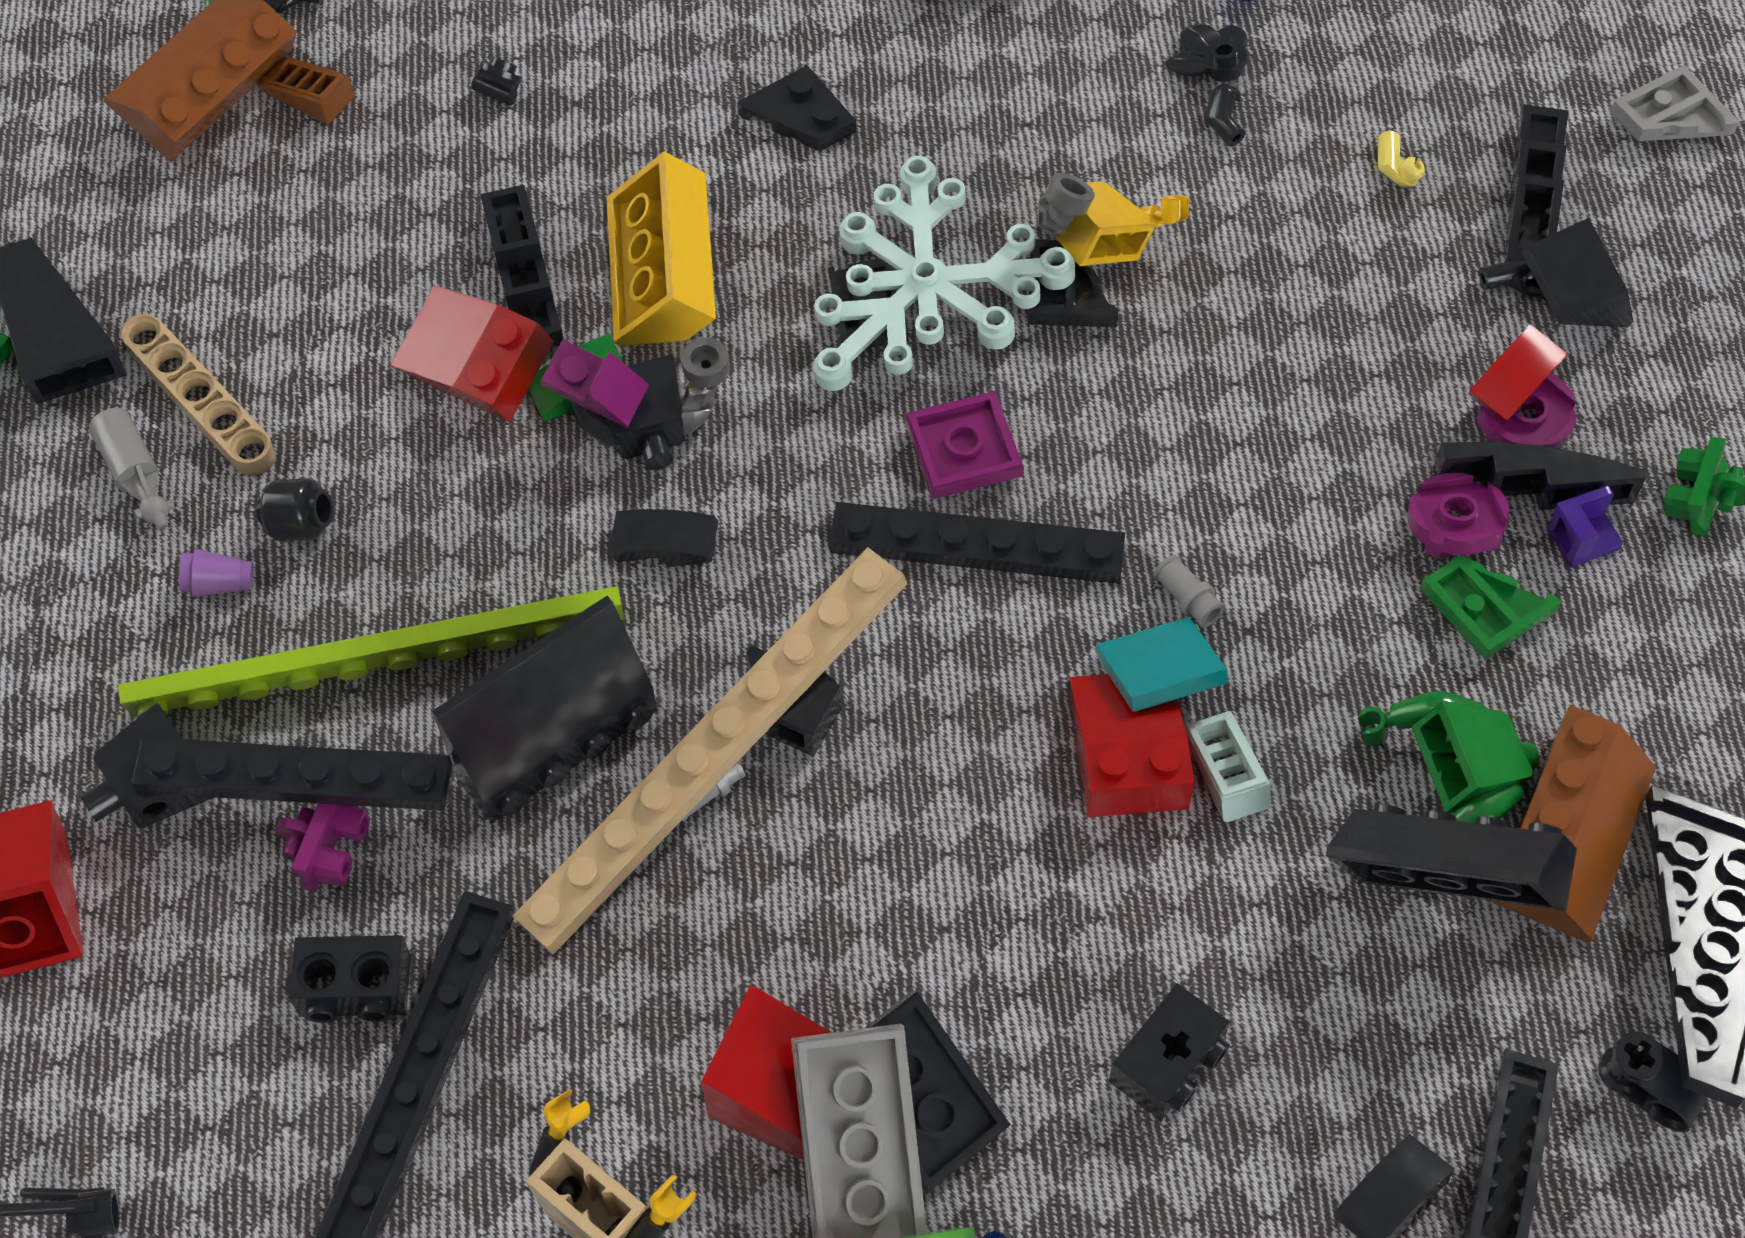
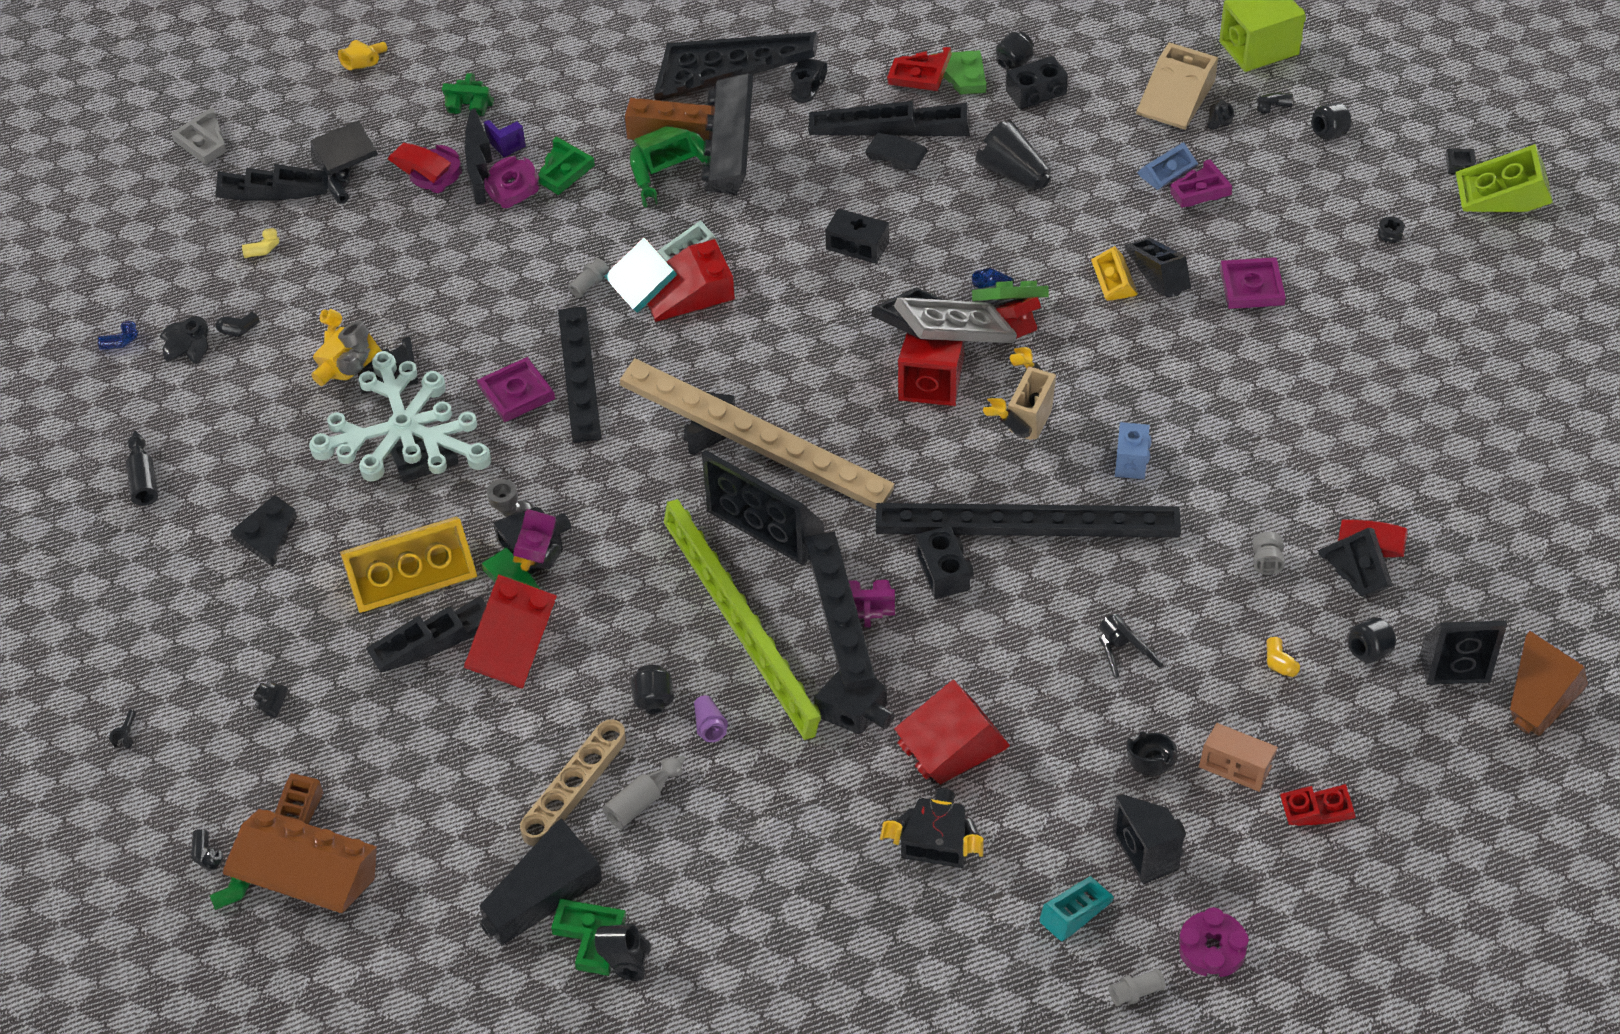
camera: 105 degrees left, 10 degrees down
(672, 535) = (617, 509): black slope -> none

